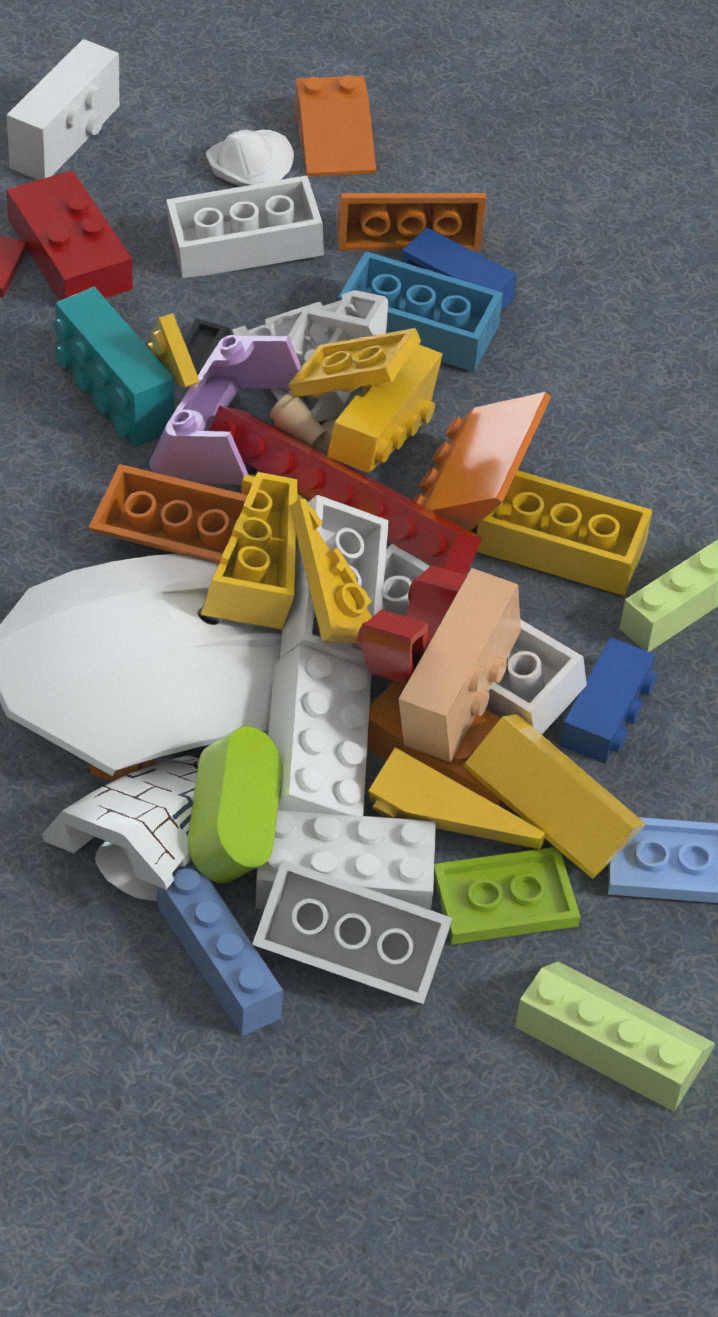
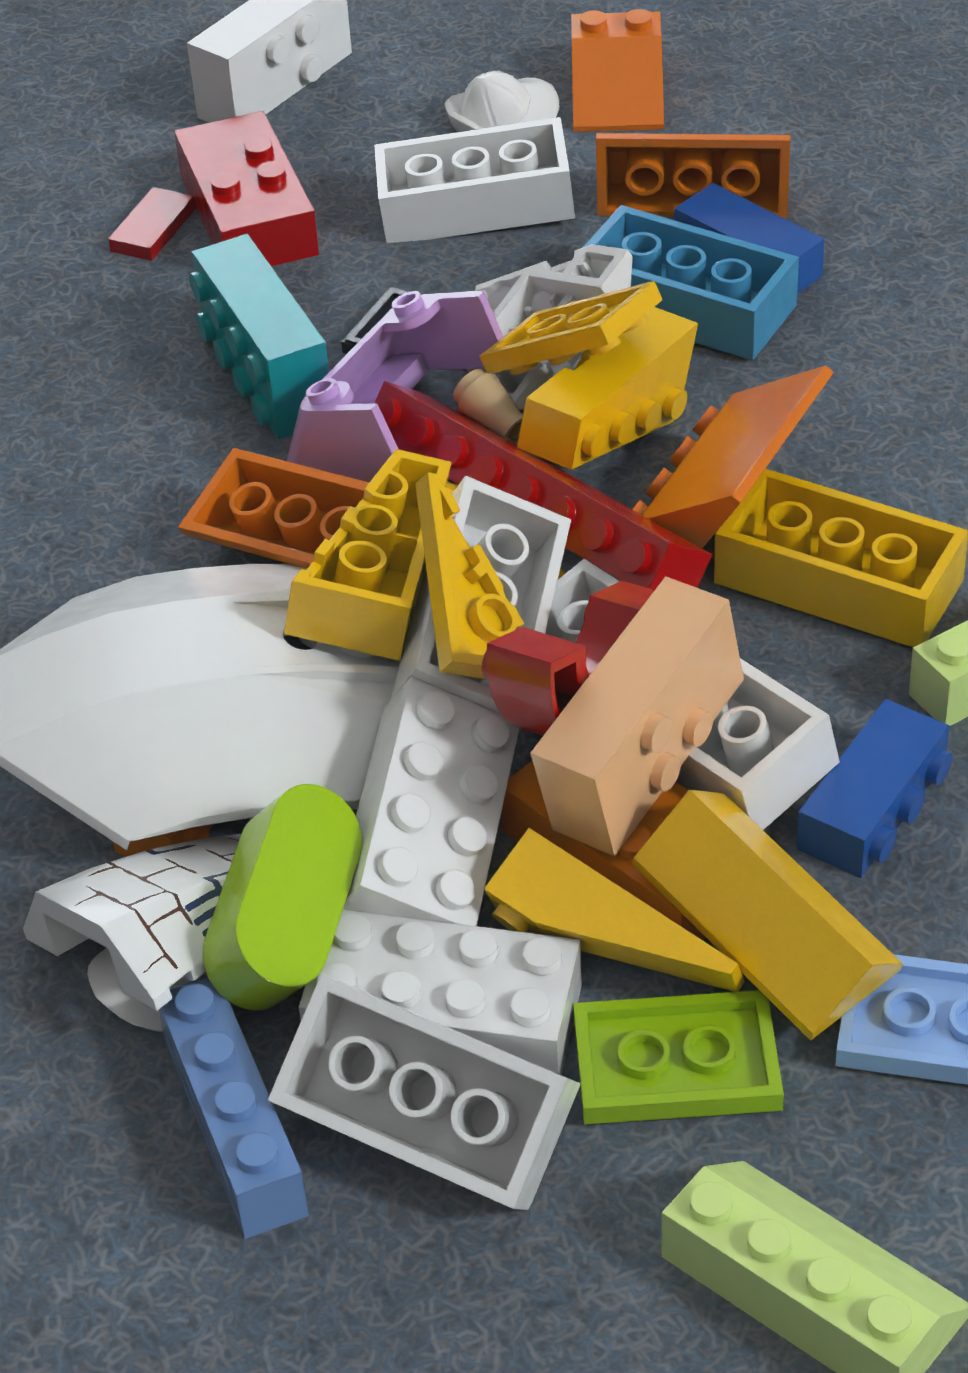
camera: 15 degrees right, 5 degrees down
(170, 349) = (325, 306): yellow wing -> none

